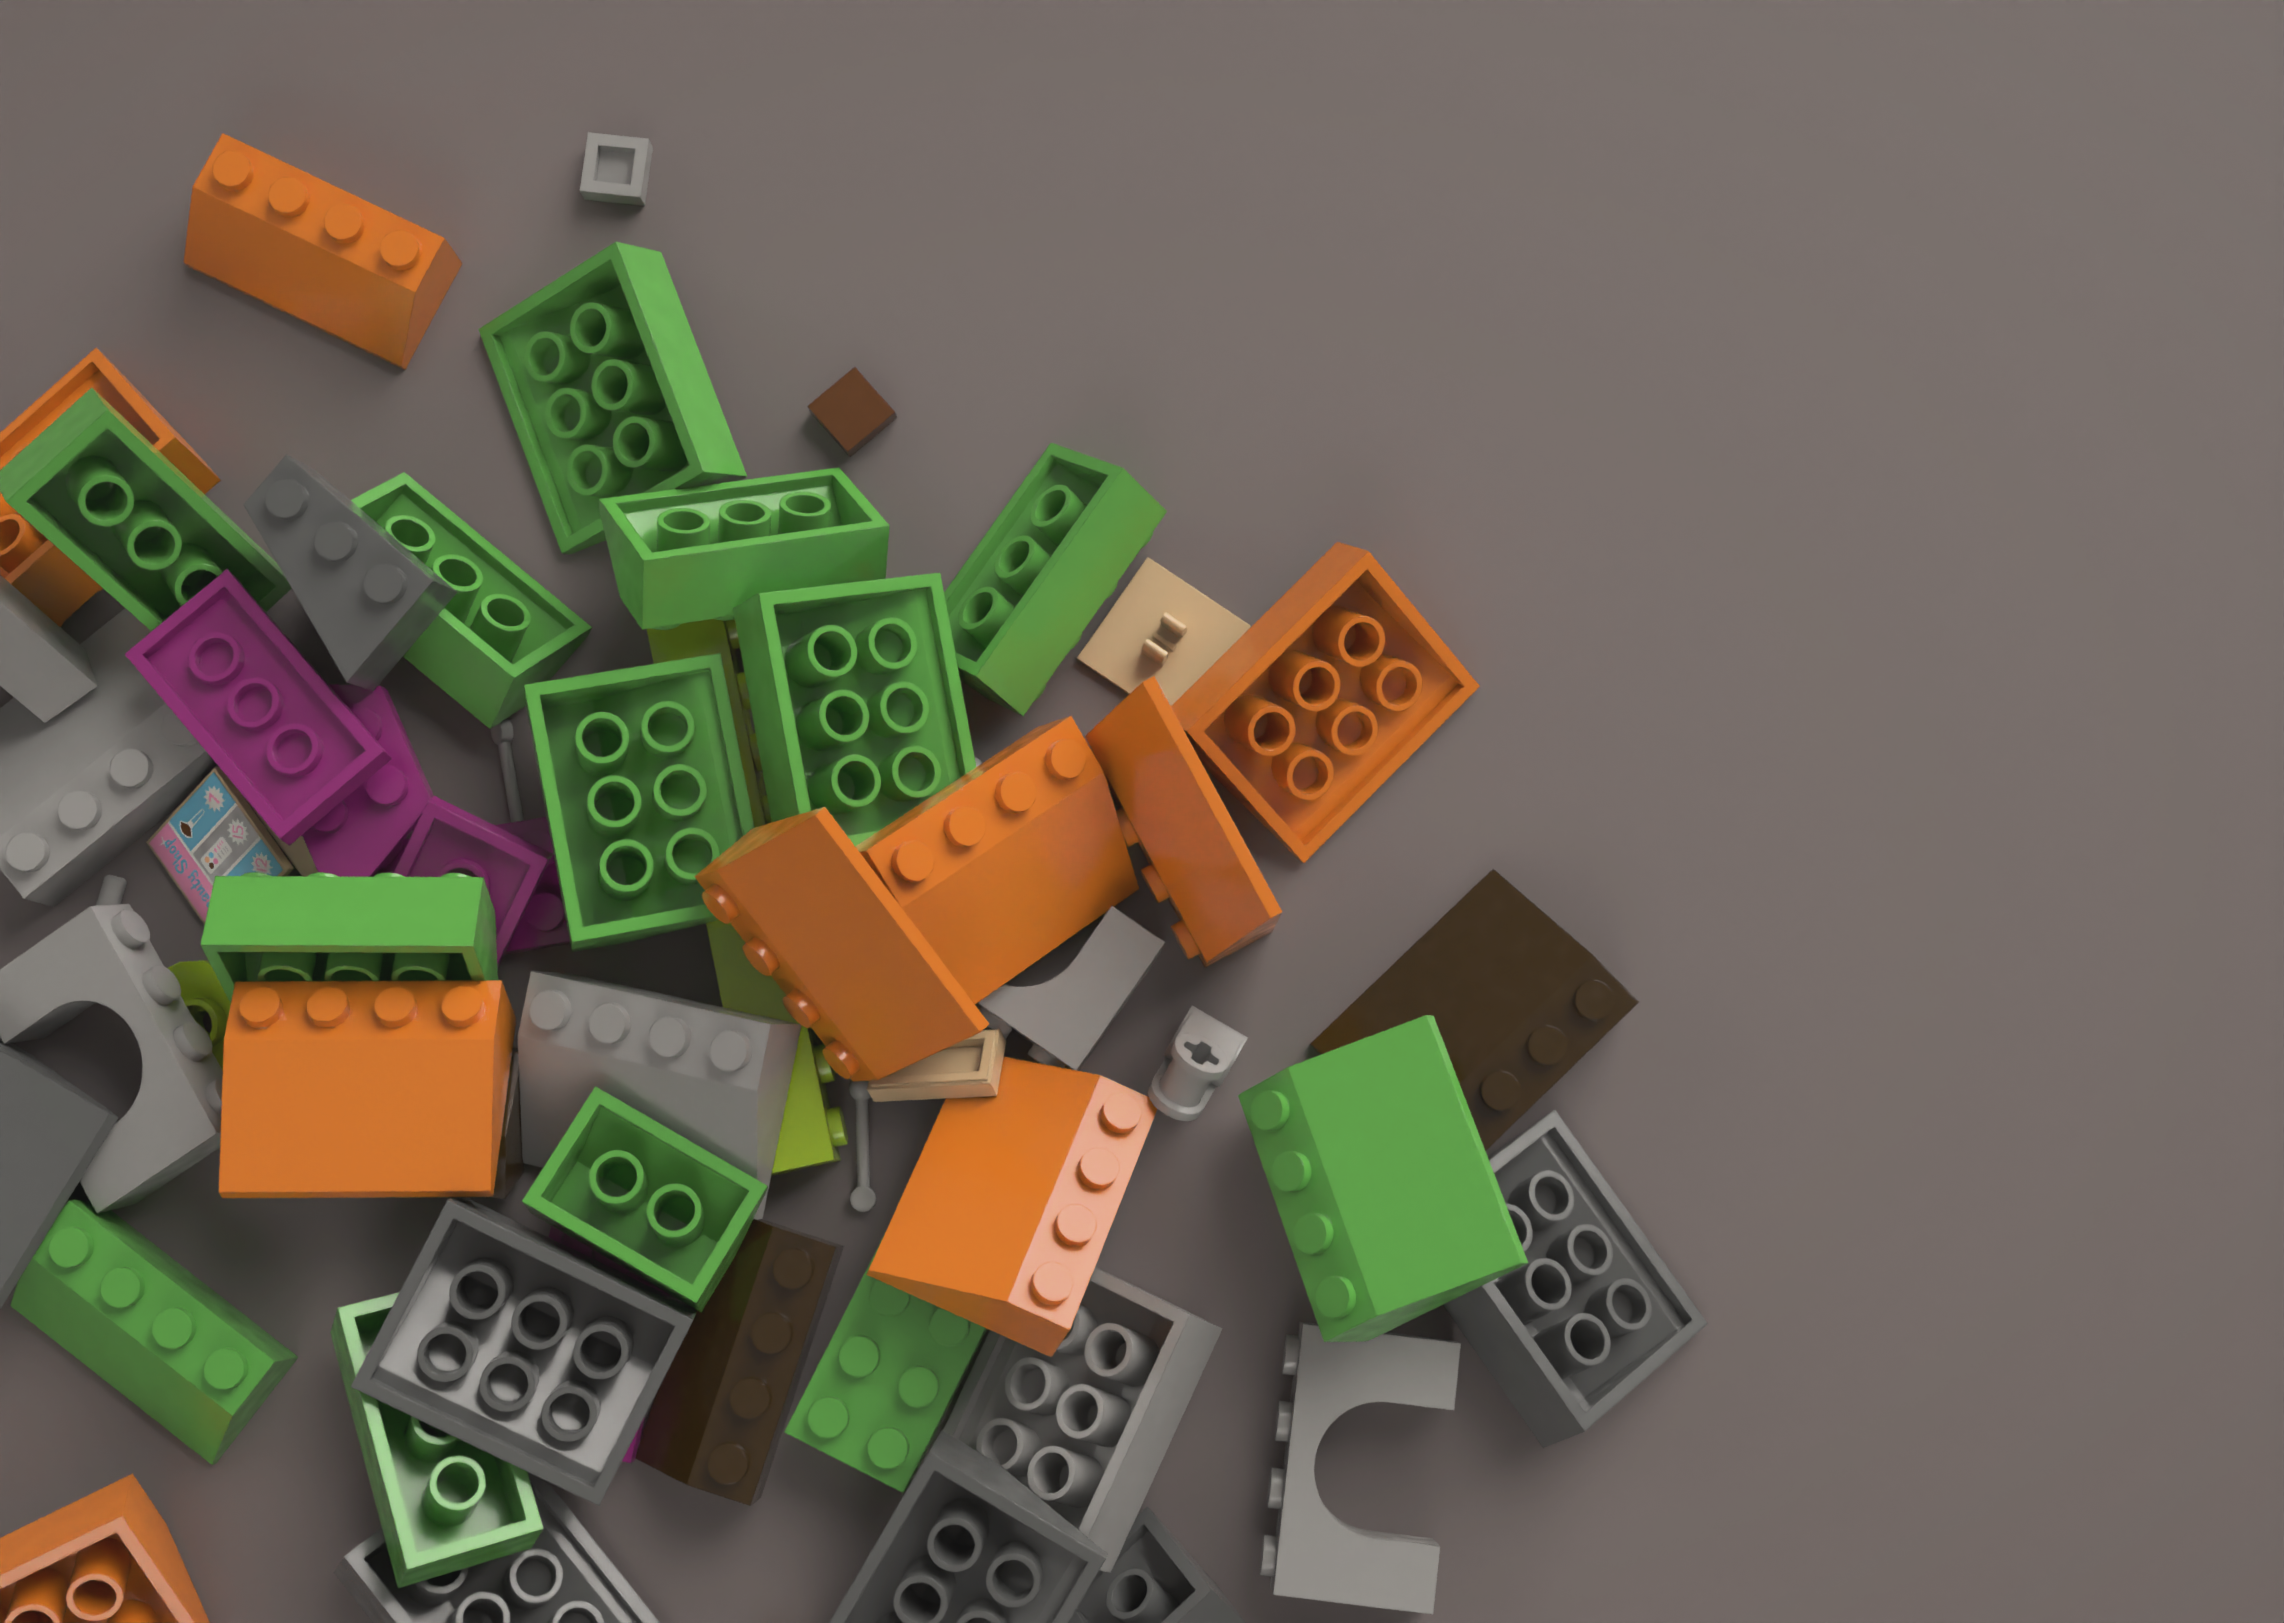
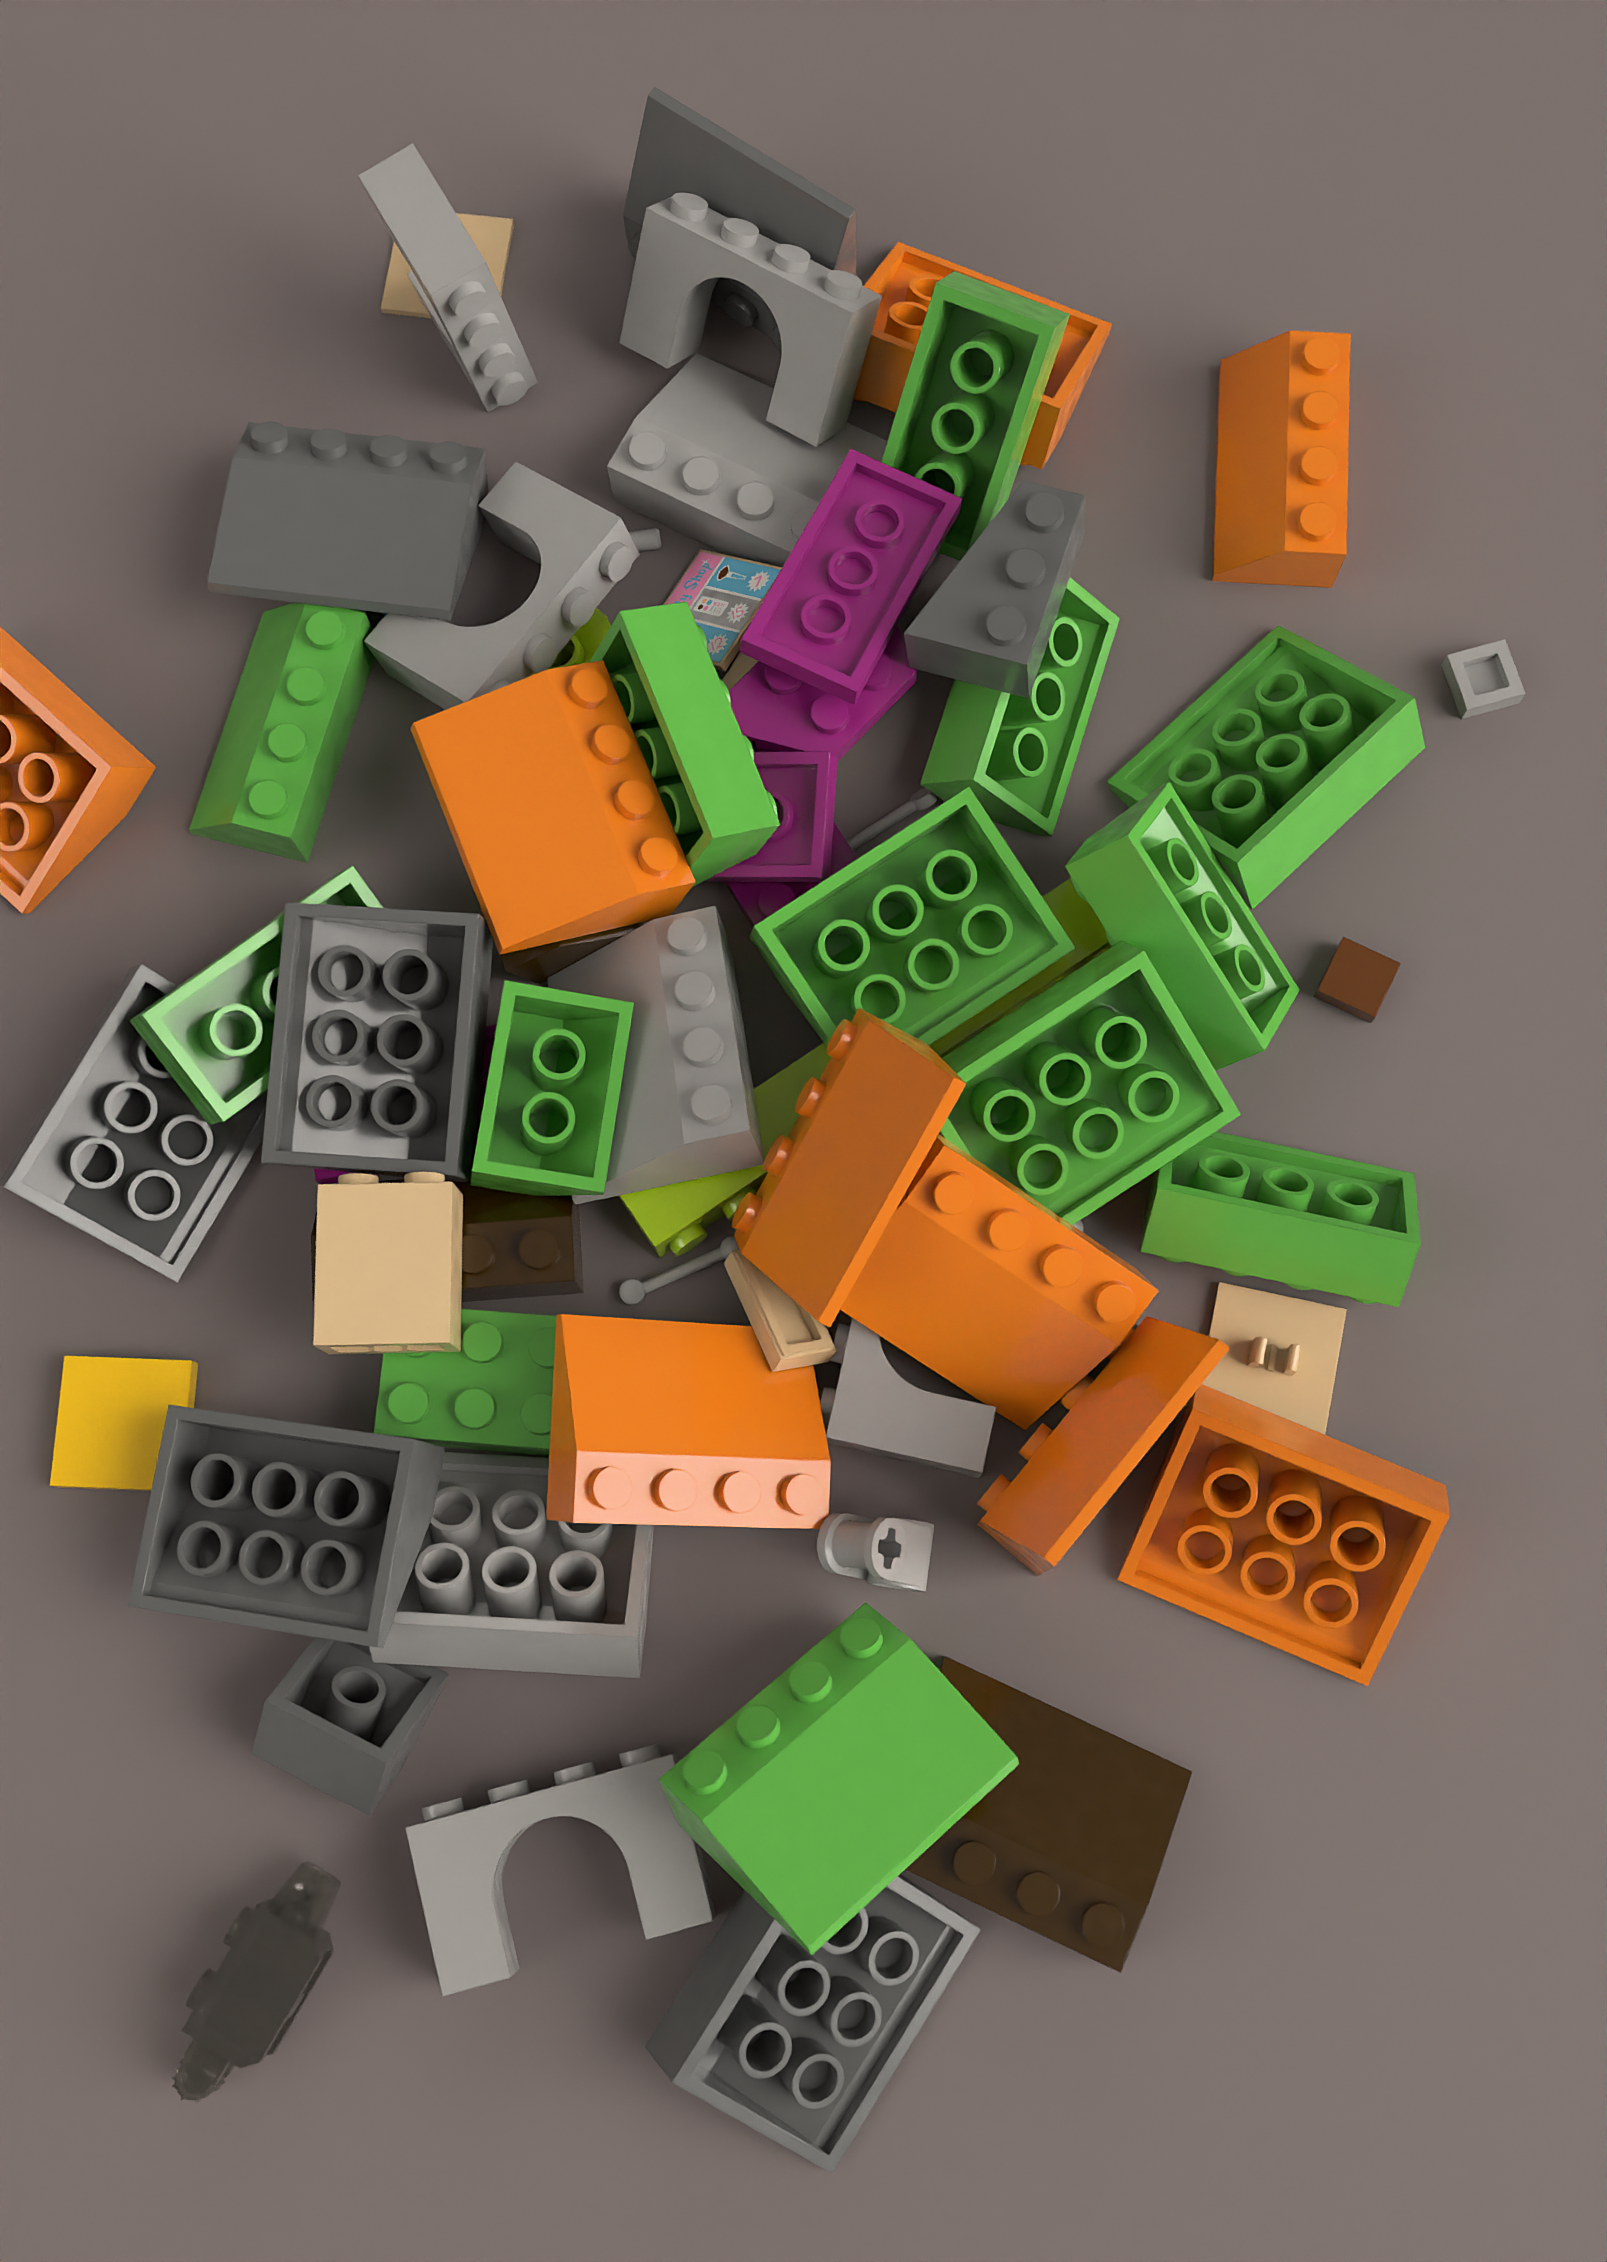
camera: 75 degrees right, 5 degrees down
(751, 1417) = (388, 1265): none -> tan brick

